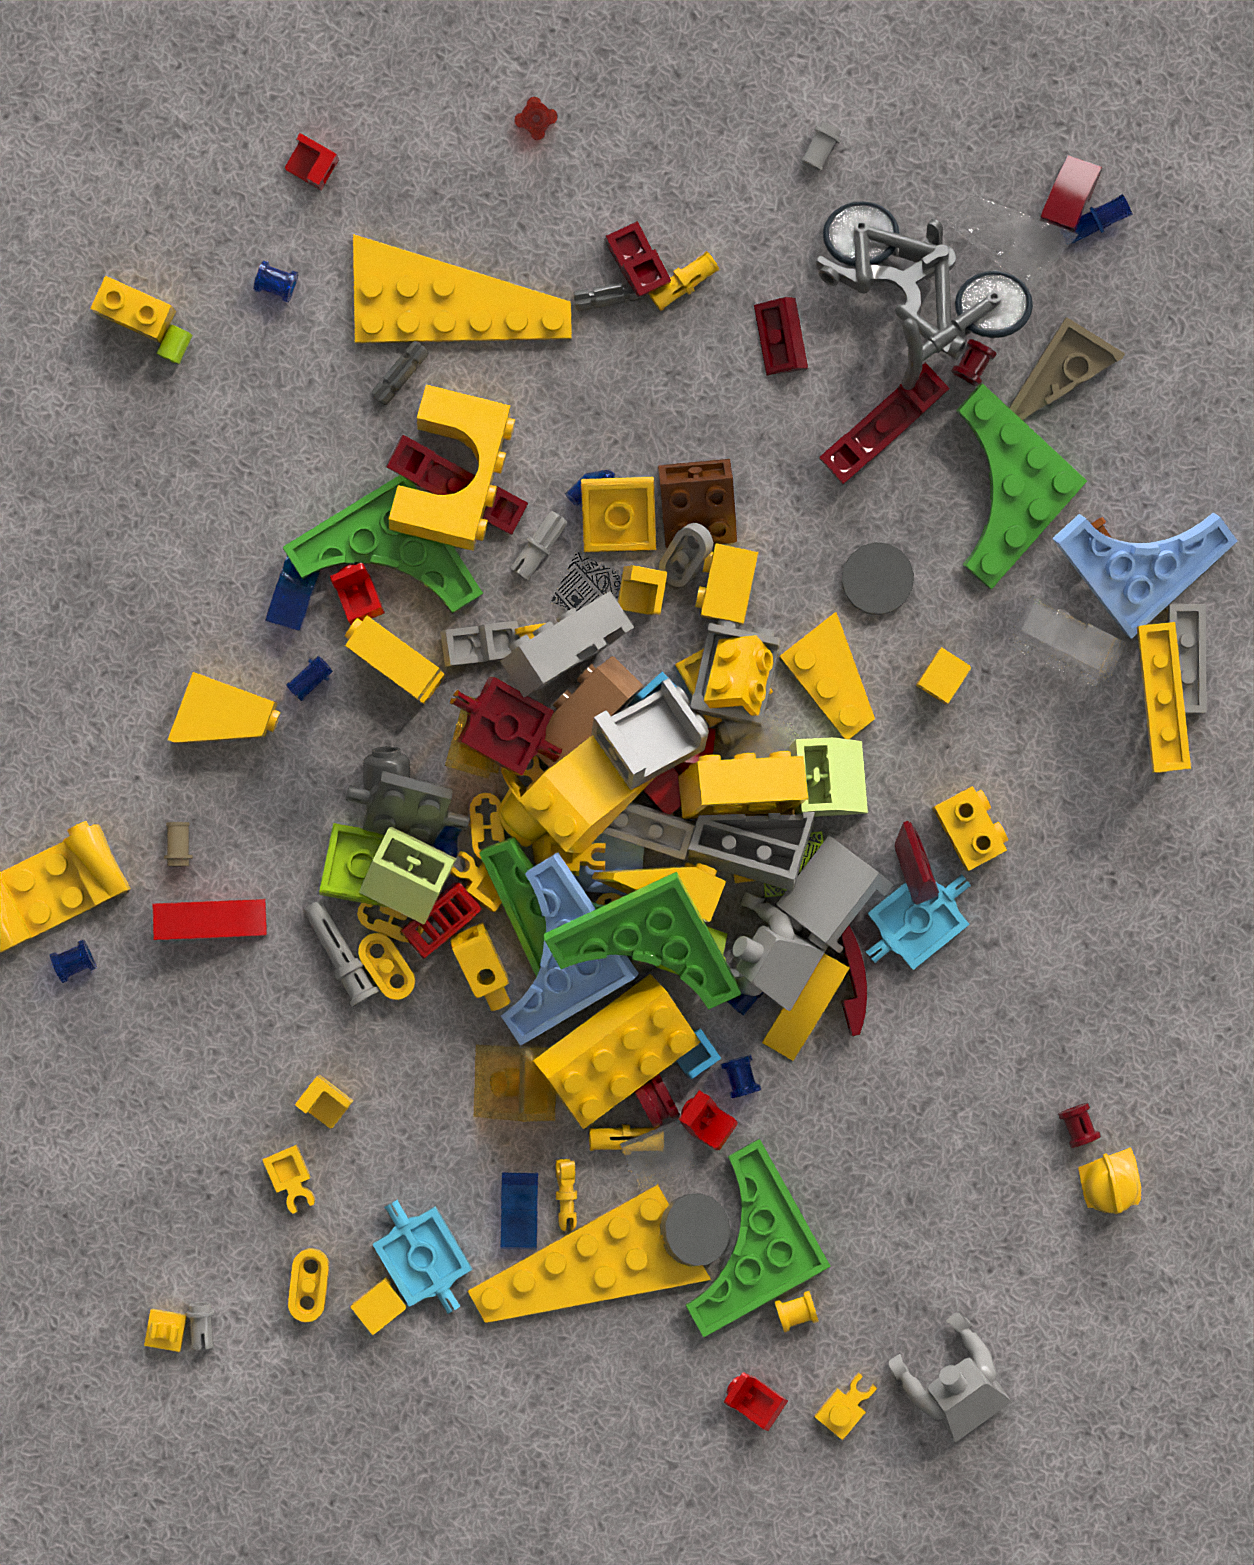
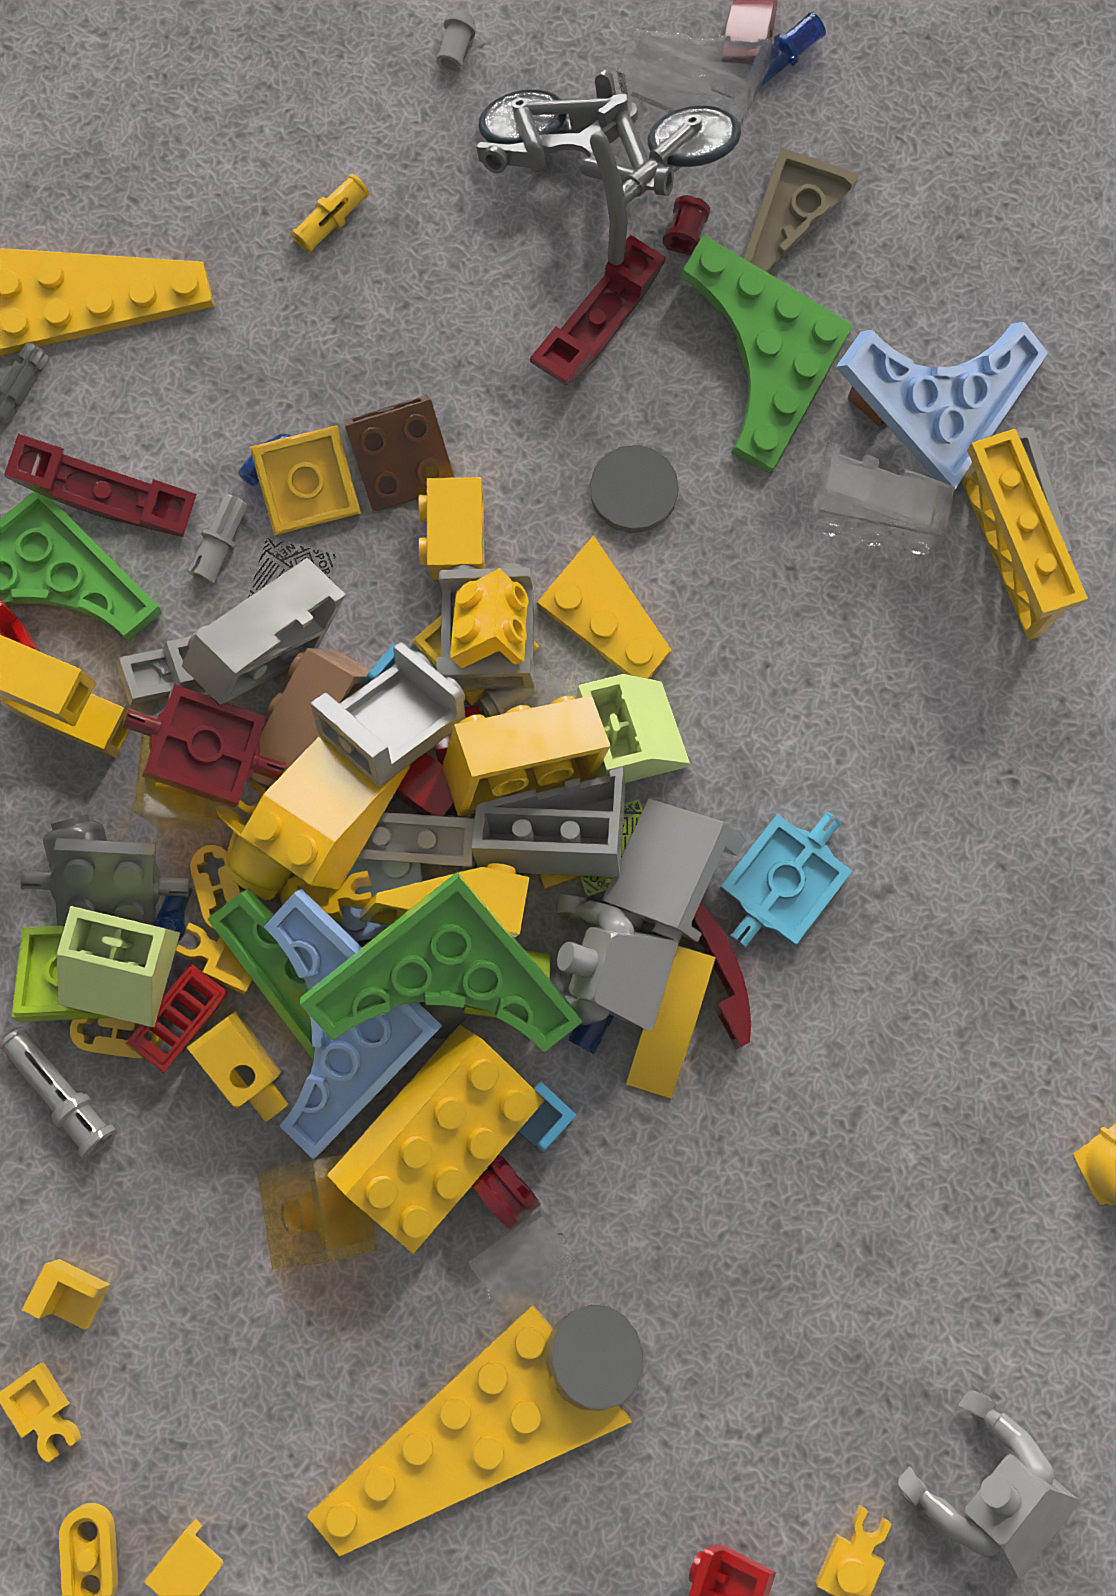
camera: 10 degrees left, 10 degrees down
(385, 967) = (120, 1097): yellow plate -> none
(422, 1256) = (236, 1481): medium azure plate -> none
(458, 516) = (108, 514): yellow arch -> none
(519, 1211) = (356, 1385): clear blue slope -> none
(533, 108) = (122, 71): clear red plate -> none
(566, 1178) = (413, 1347): yellow piece -> none
(600, 1138) = (442, 1261): yellow pin -> none
(604, 296) = (247, 247): dark grey axle -> none
(637, 259) = (268, 198): dark red slope -> none
(642, 590) = (352, 558): yellow panel -> none
(686, 551) = (395, 501): light grey plate -> none
(706, 1121) = (577, 1204): red bracket -> none
(740, 1076) = (608, 1134): clear blue bush -> none
(771, 1248) = (703, 1362): bright green plate -> none
(780, 336) = (456, 249): dark red slope -> none
(796, 1311) = (756, 1440): yellow bush -> none
(915, 864) = (765, 811): dark red slope -> none
(943, 676) = (741, 579): yellow panel -> none
(970, 827) = (822, 751): yellow brick -> none
(1079, 1125) = (1062, 1097): dark red bush -> none

